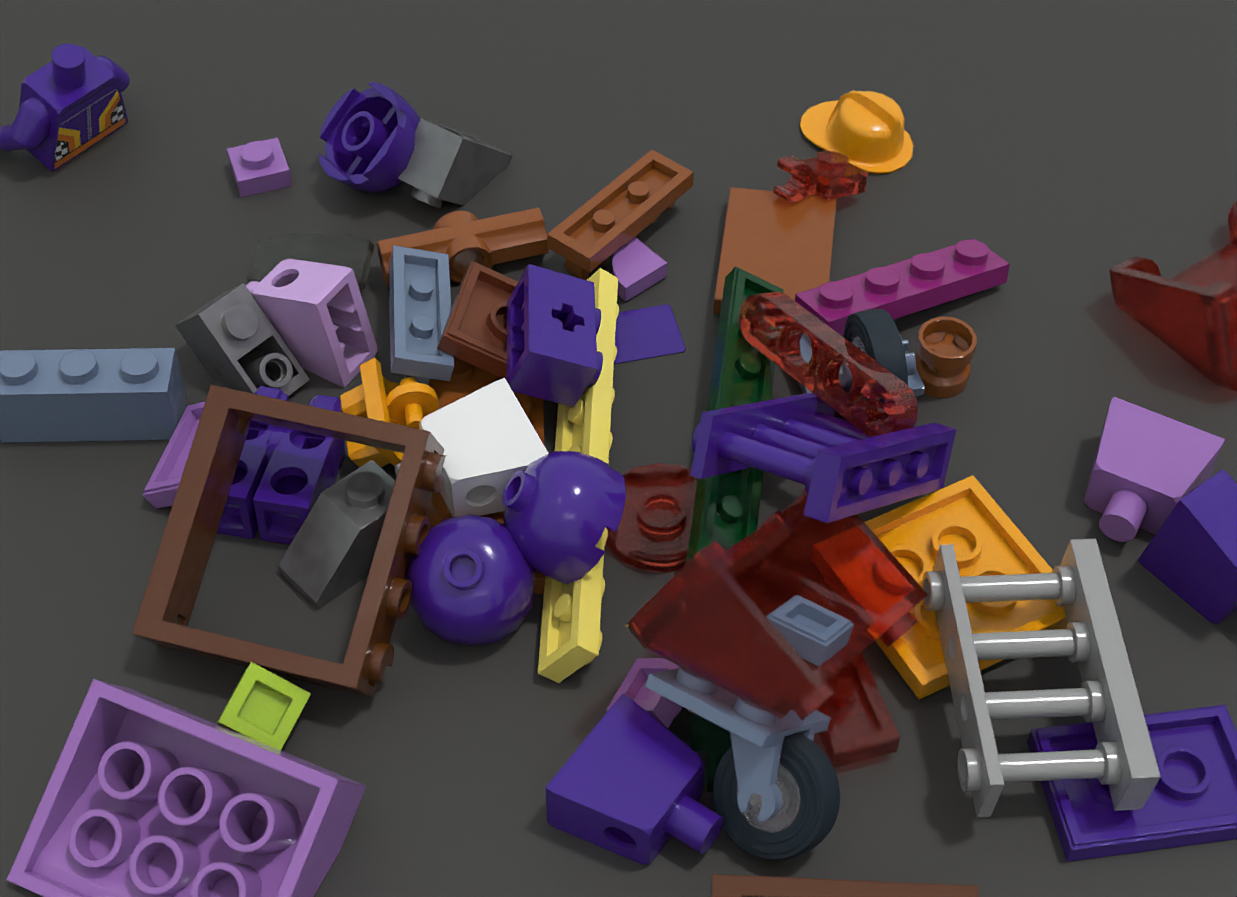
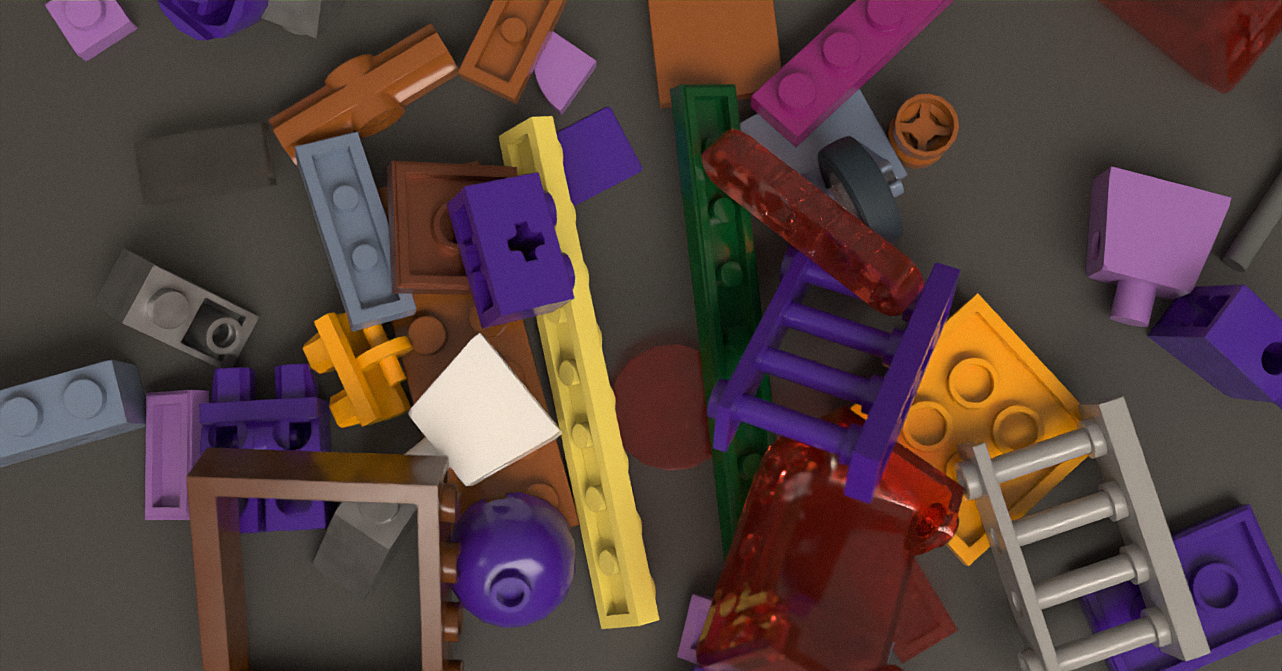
camera: 10 degrees left, 35 degrees up
(318, 317) = (235, 257): lavender torso -> none
(561, 511) = (589, 486): dark purple cylinder -> none
(811, 629) = (860, 575): sand blue tile -> none

